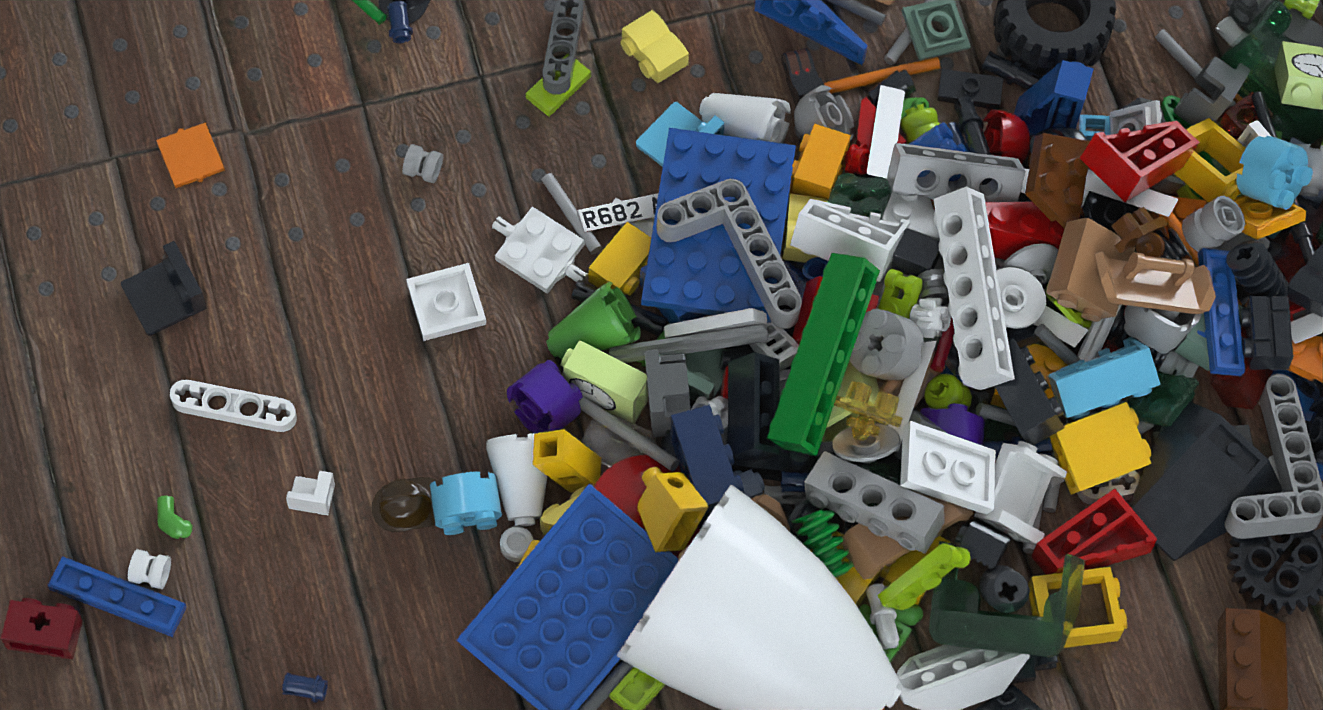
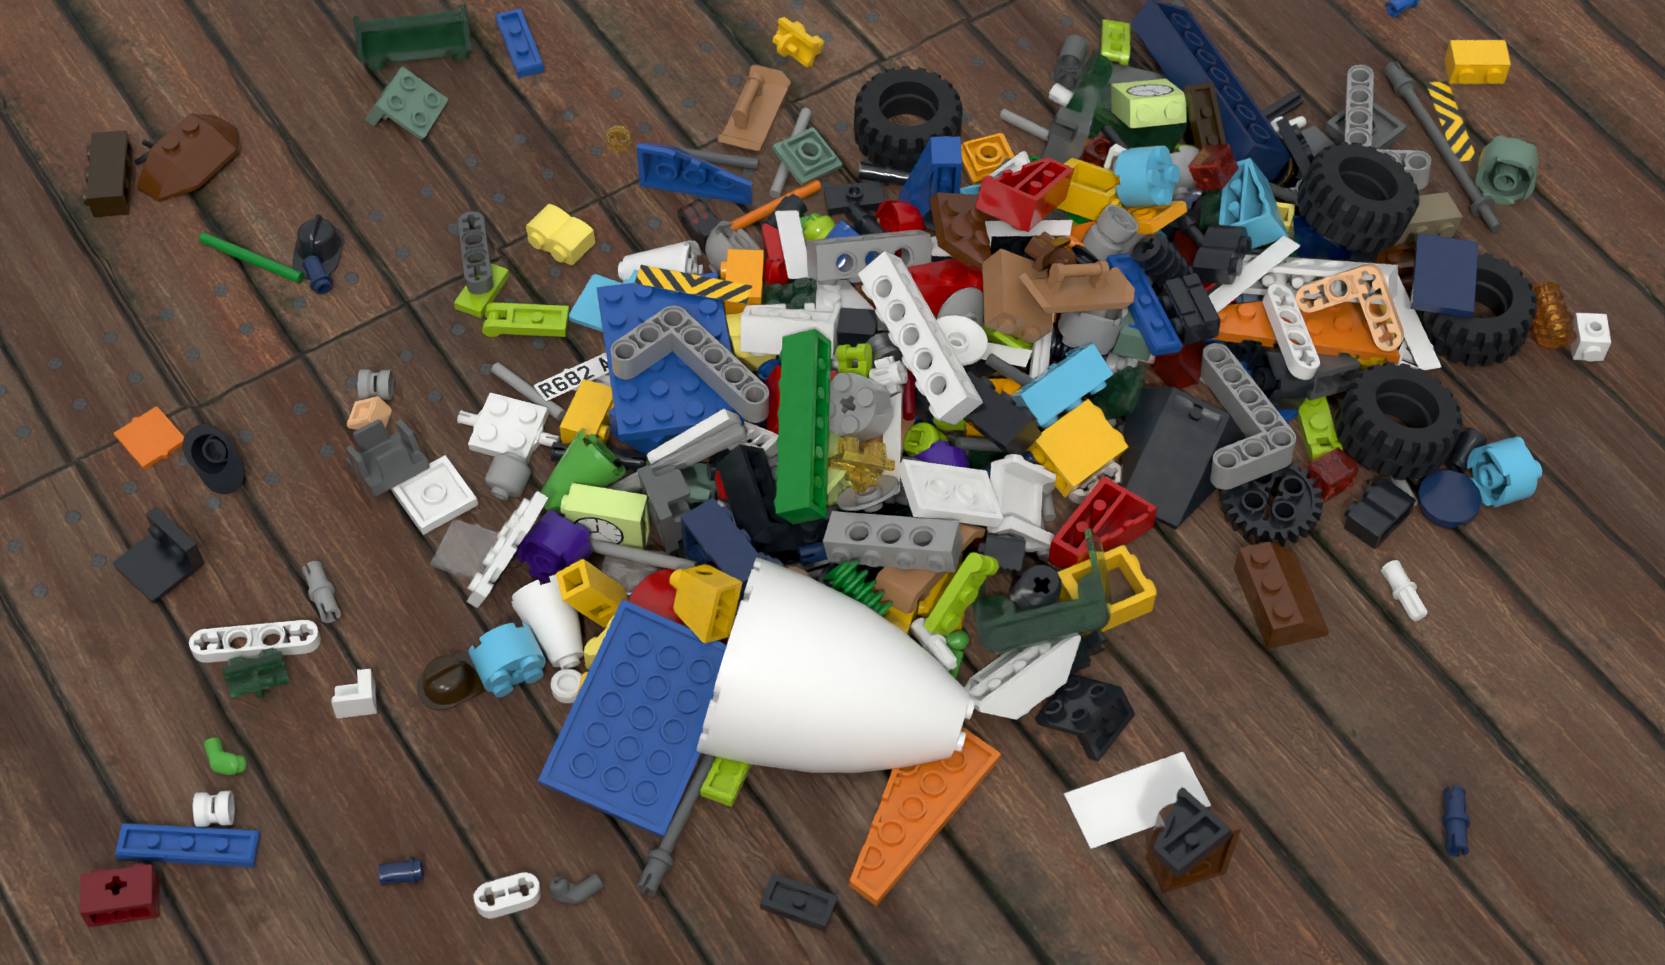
camera: 15 degrees left, 10 degrees down
(224, 443) = (255, 674): none -> clear green hips
(245, 200) = (214, 458): none -> black piece
(309, 373) = (321, 591): none -> light grey pin
(408, 194) = (368, 411): none -> light nougat slope
(409, 249) = (385, 459): none -> dark grey panel
(461, 369) = (464, 549): none -> clear piece
(487, 392) = (505, 547): none -> white plate
(523, 303) = (507, 475): none -> light grey head
(592, 133) = (526, 319): none -> lime plate
(767, 154) = (693, 284): none -> sticker
(1112, 93) = (979, 166): none -> light orange piece

